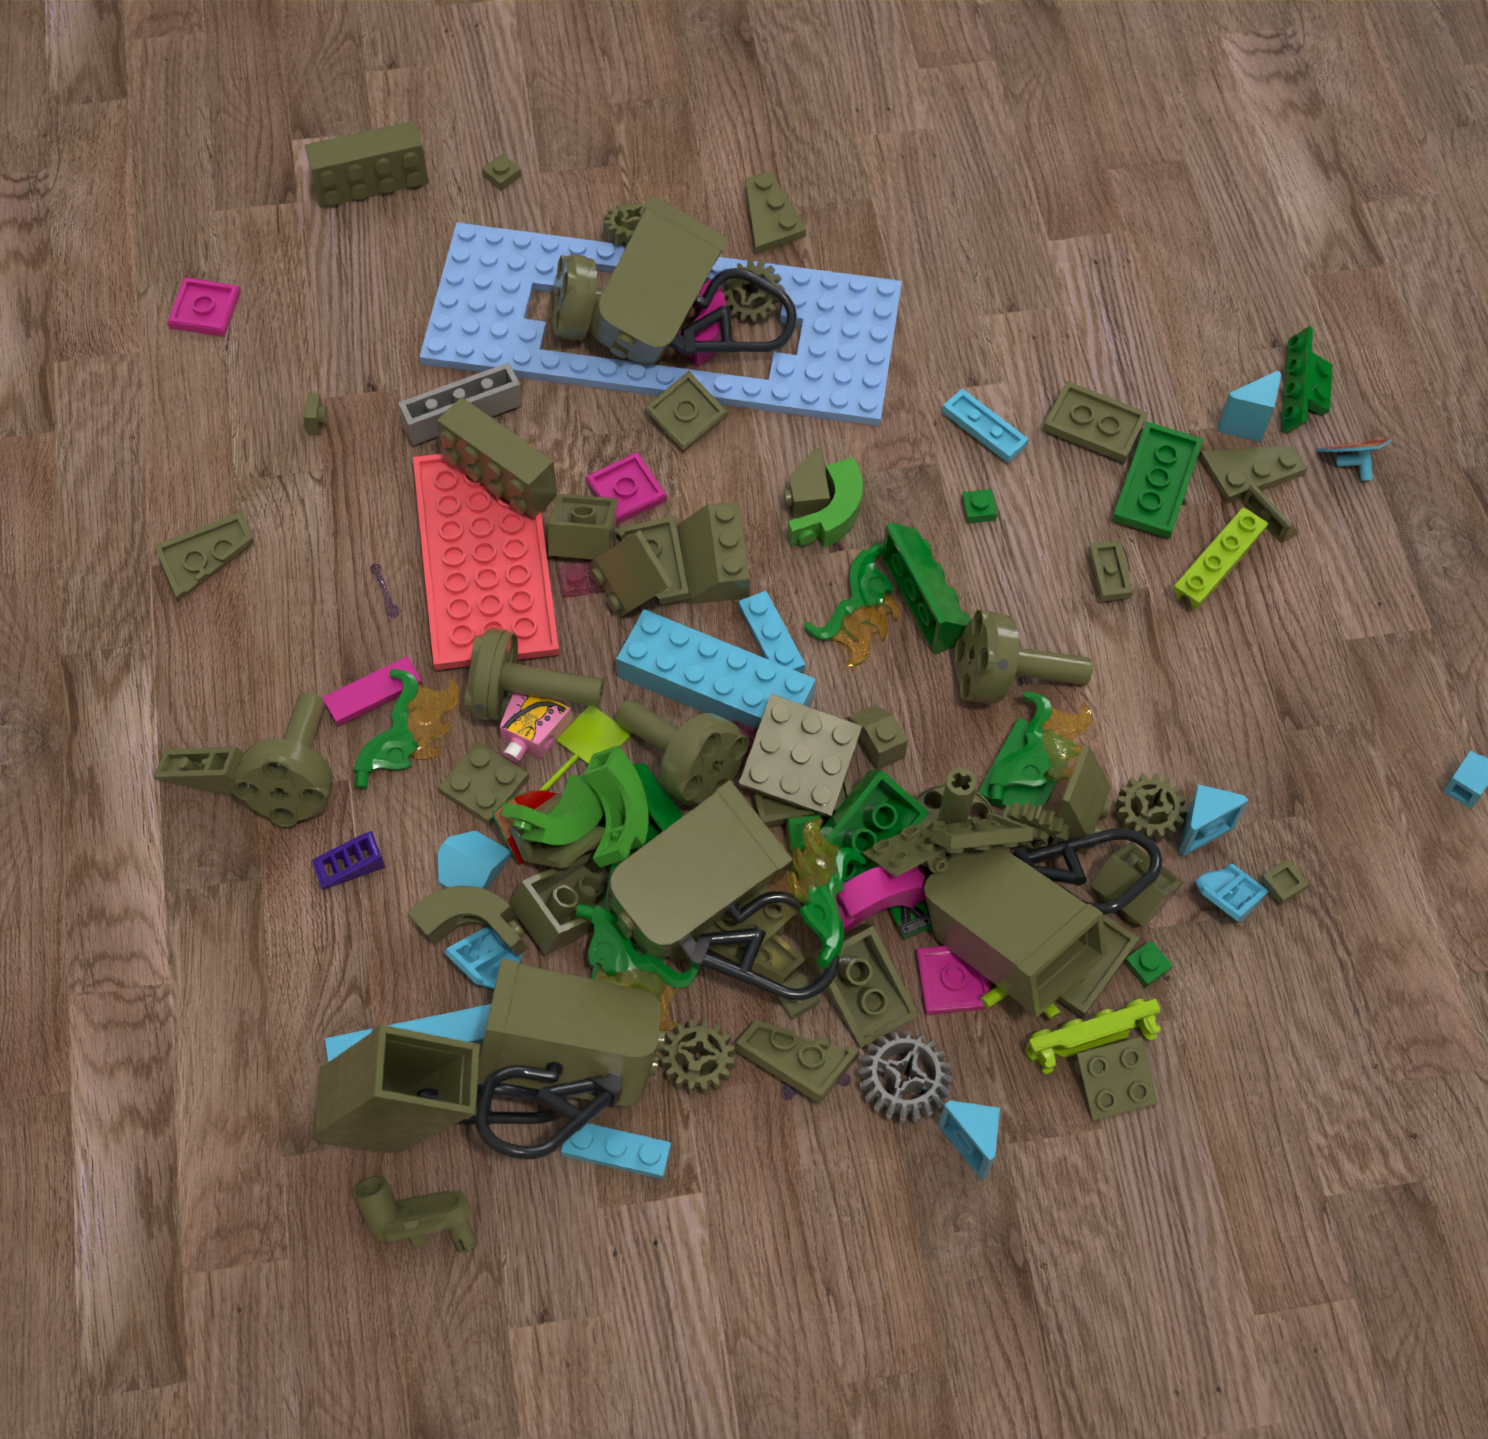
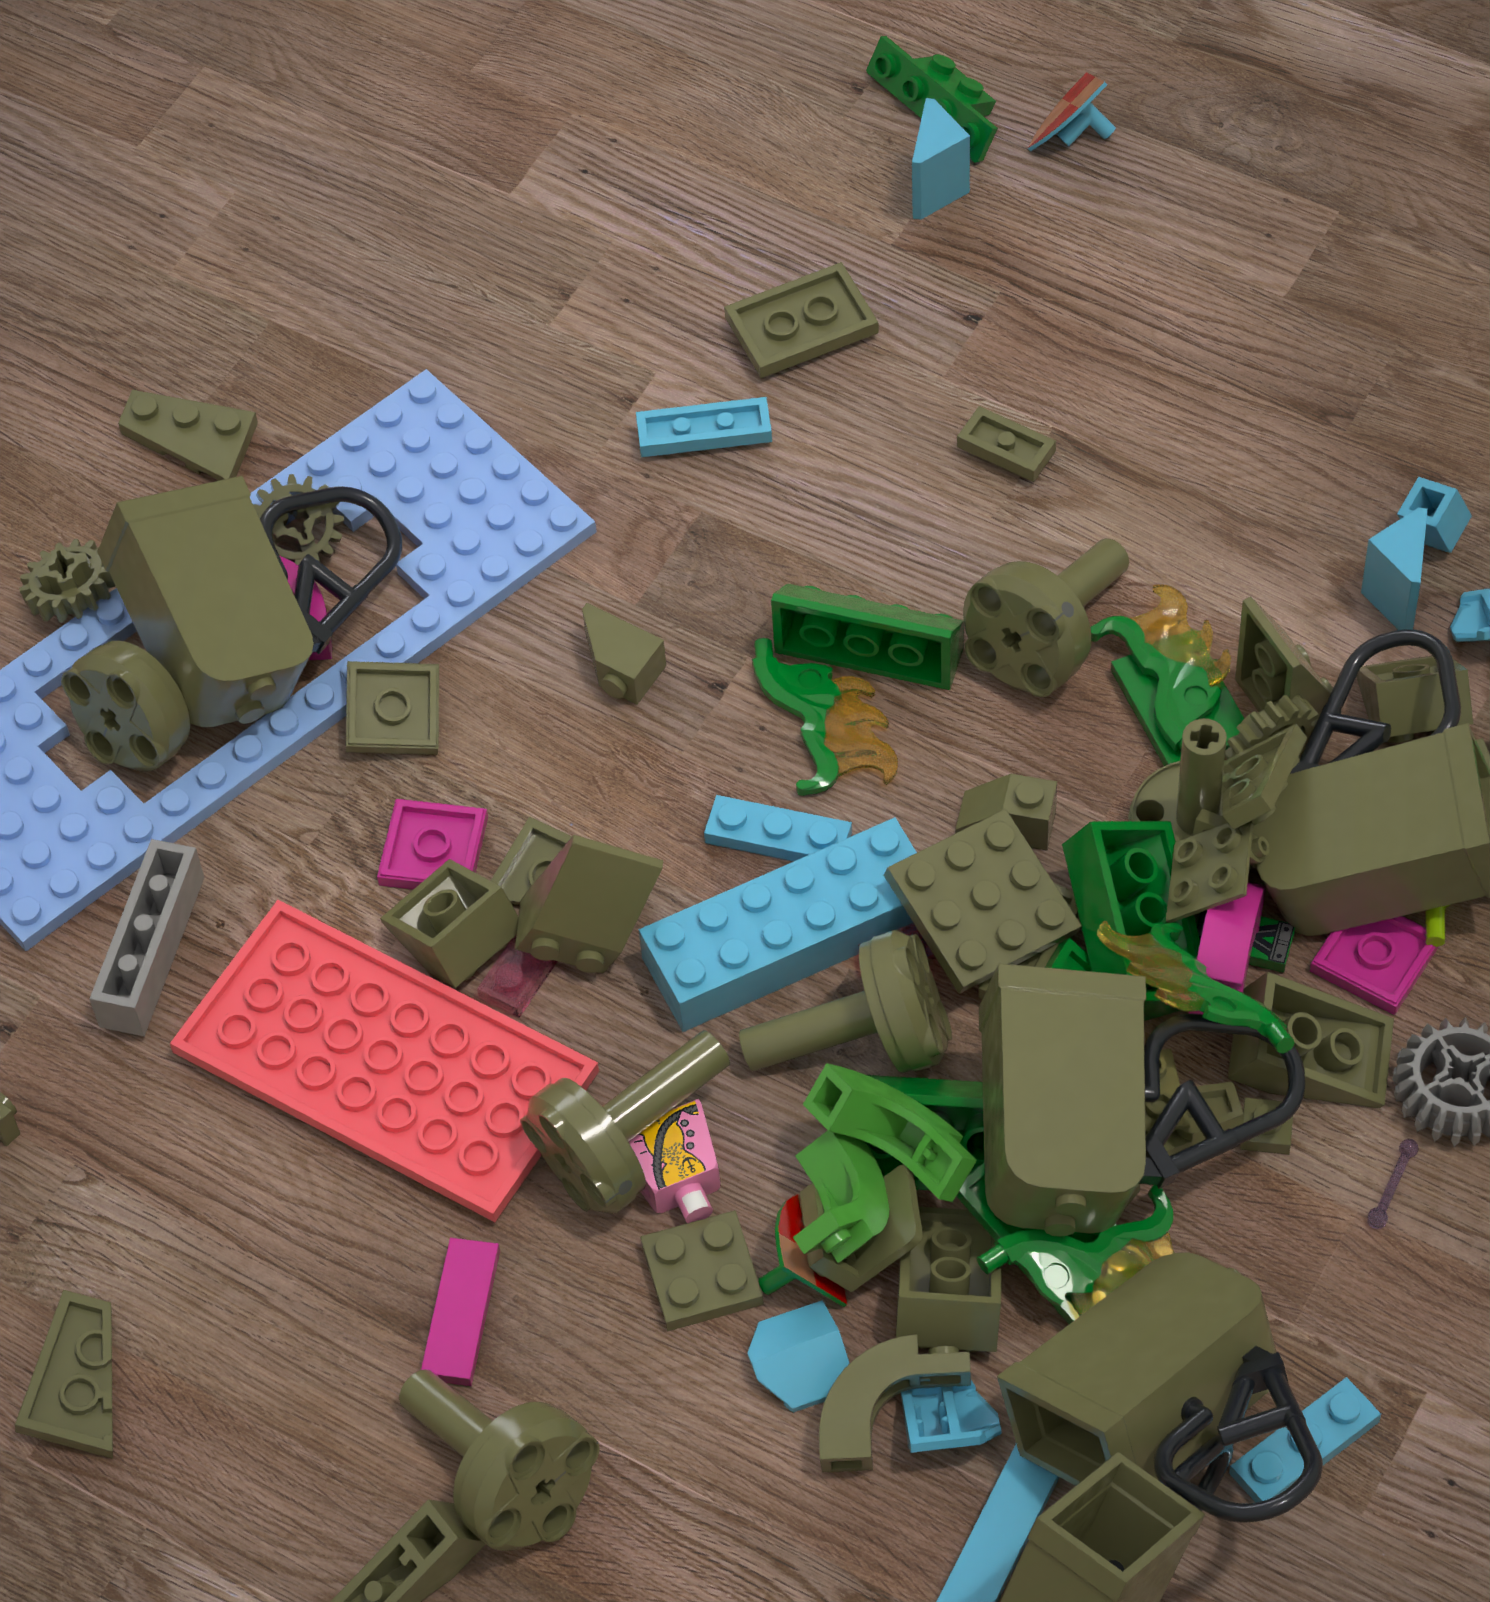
camera: 45 degrees left, 5 degrees down
(362, 867) = (690, 1449): dark purple slope -> none
(392, 609) = (363, 1214): hinge -> none
(413, 729) = (558, 1298): piece -> none
(497, 458) = (283, 940): olive brick -> none
(586, 736) = (745, 1114): lime piece -> none
(711, 1059) = (1275, 1255): olive gear -> none
(715, 554) = (621, 803): olive slope -> none
(798, 1061) = (1356, 1174): olive wing -> none
(840, 516) = (685, 646): bright green arch -> none
(979, 506) = (801, 509): green plate -> none
(1140, 796) = (1334, 615): olive gear -> none
(1157, 480) = (933, 317): green plate -> none
(1220, 557) = (1090, 329): lime piece -> none
(1238, 468) = (998, 225): olive wing -> none
(1263, 812) = (1445, 514): none -> medium azure brick
(1266, 510) = (1072, 248): olive slope -> none

